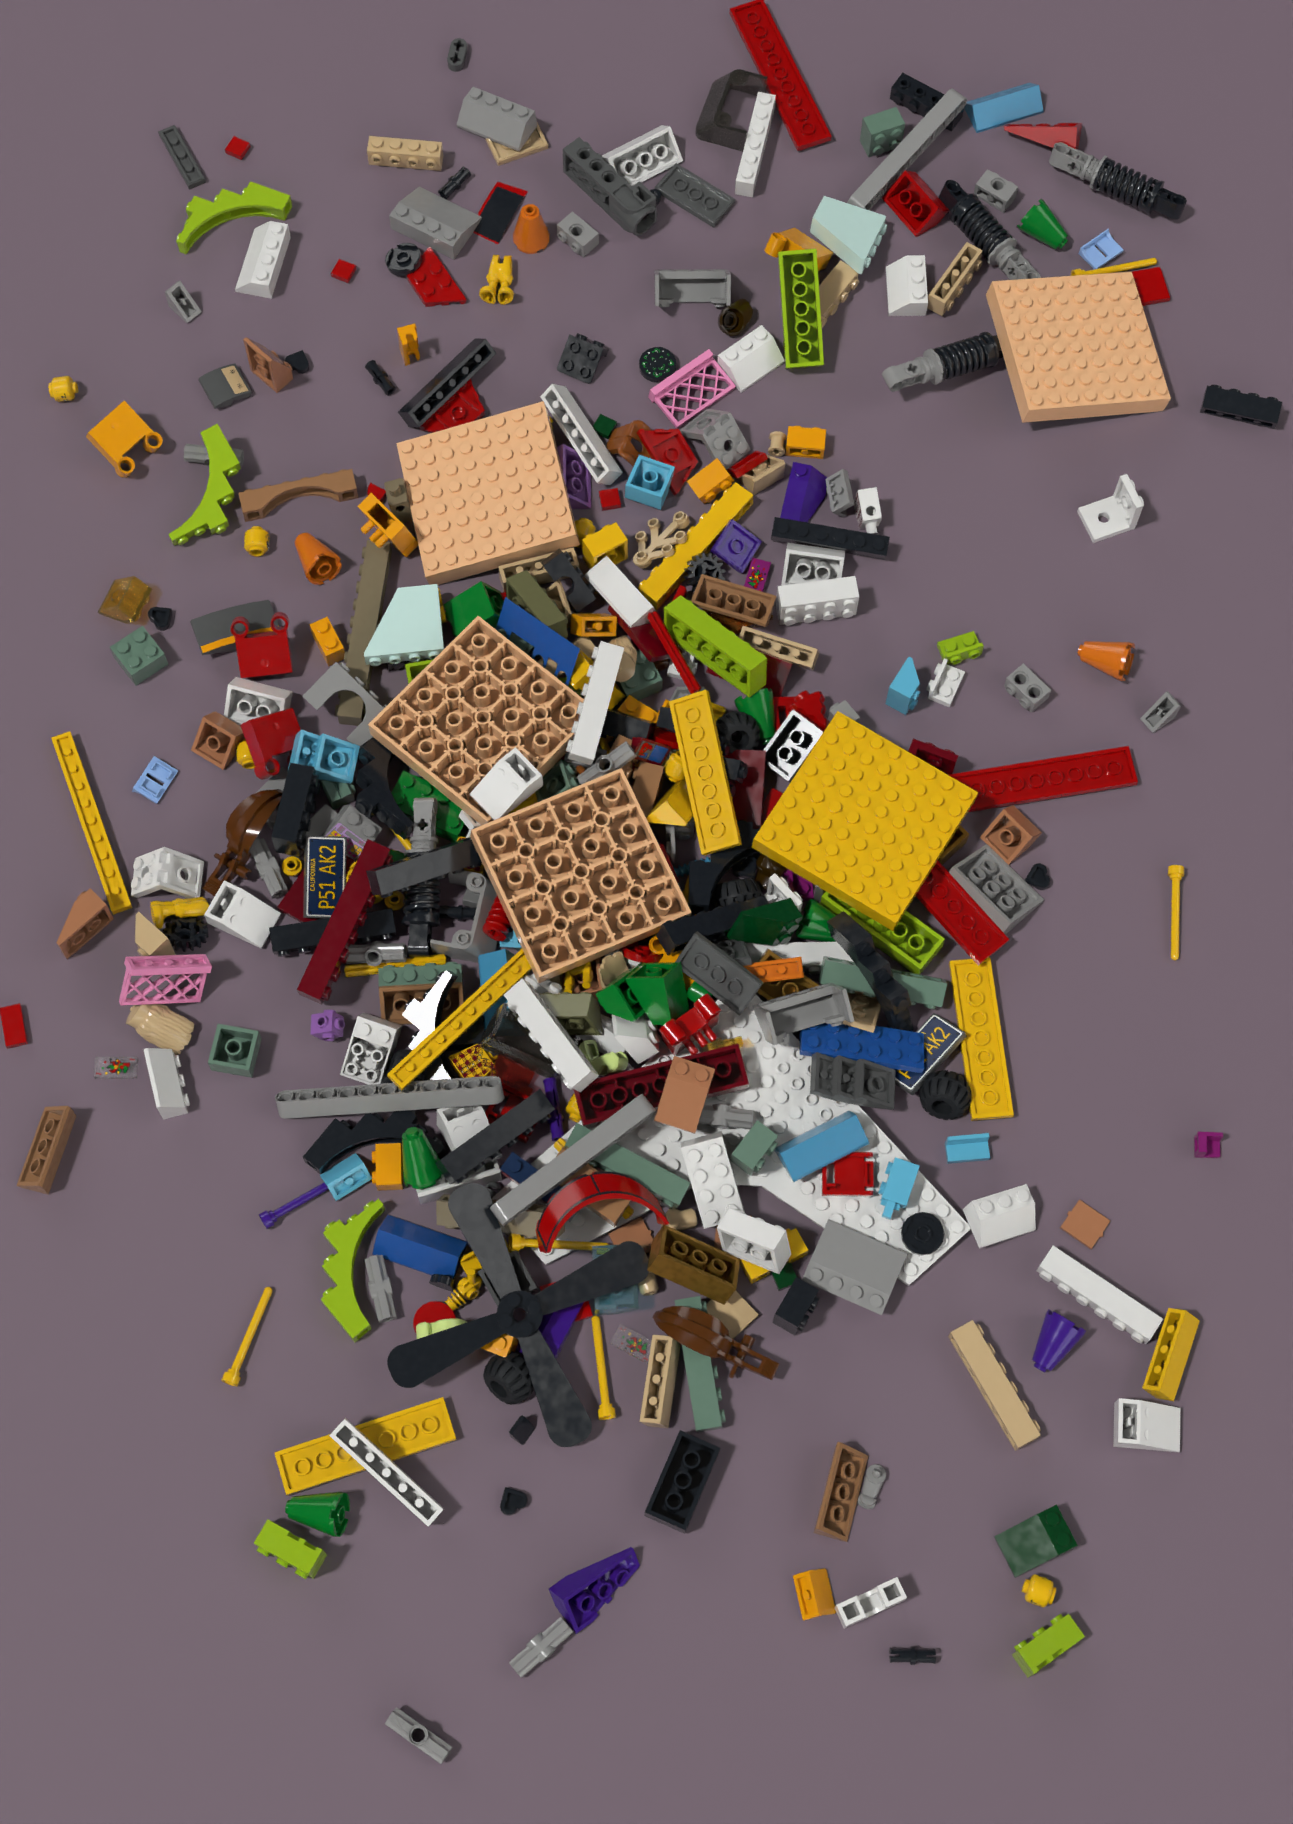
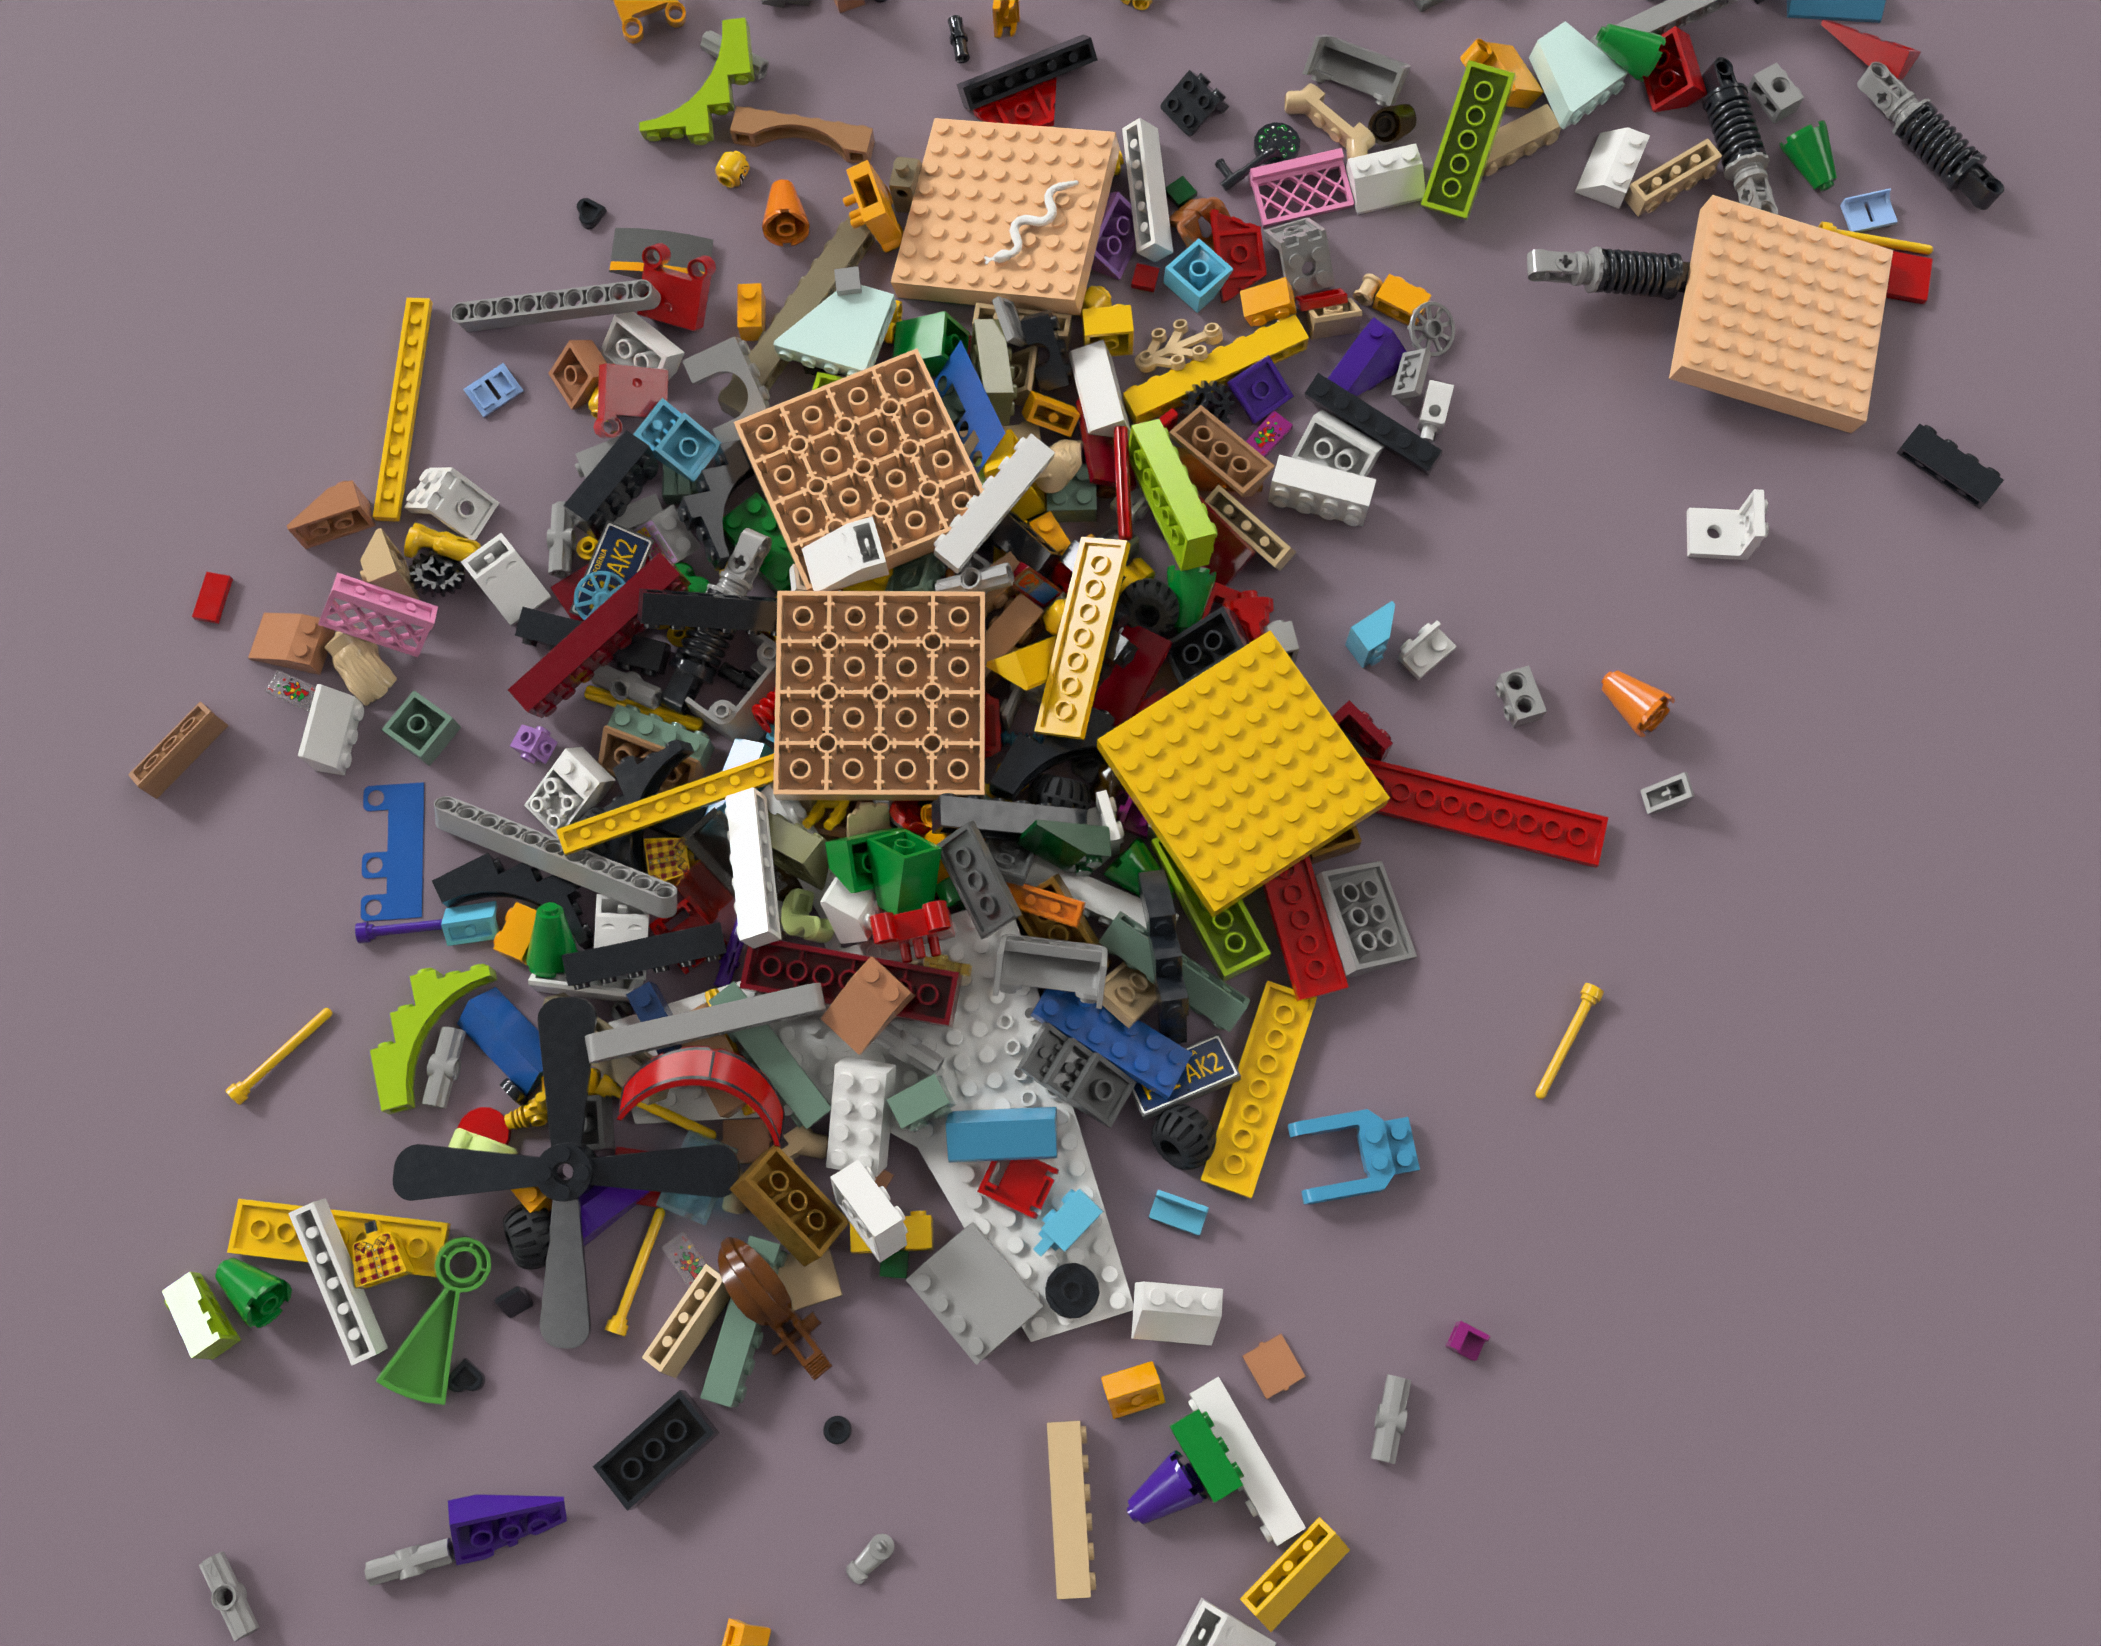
camera: 30 degrees right, 5 degrees up
(95, 1031) = (291, 642): none -> nougat slope
(125, 600) = (561, 178): clear yellow slope -> none
(139, 655) = (543, 245): sand green brick -> none
(166, 696) = (565, 309): none -> light grey beam
(241, 833) = (545, 483): reddish brown piece -> none
(265, 1150) = (404, 854): none -> blue piece
(326, 896) = (600, 594): none -> medium azure wheel
(378, 492) = (885, 168): red tile -> none
(398, 587) = (847, 281): none -> light grey tile
(407, 1441) = (379, 1257): none -> torso
(477, 1497) = (424, 1358): none -> bright green piece
(506, 522) = (1004, 255): none -> white animal
(532, 569) = (1009, 321): none -> light grey tile
(637, 402) = (1233, 178): none -> black piece
(667, 324) = (1311, 103): none -> tan plate
(795, 1306) = (884, 1308): black brick -> none
(802, 1410) = (837, 1429): none -> black tile
(836, 452) = (1431, 328): none -> light grey wheel
(841, 1492) = (830, 1549): medium nougat slope -> none
(882, 198) = (1631, 49): none -> green cone
(960, 648) = (1464, 616): lime bracket -> none
(997, 1284) = (1133, 1389): none -> light orange panel
(1010, 834) = (1414, 862): nougat slope -> none
(1037, 877) = (1423, 927): black tile -> none
(1071, 1301) = (1207, 1454): none -> green slope
(1085, 1038) = (1384, 1148): none -> dark azure plate
(1183, 1221) = (1390, 1419): none -> light grey piece

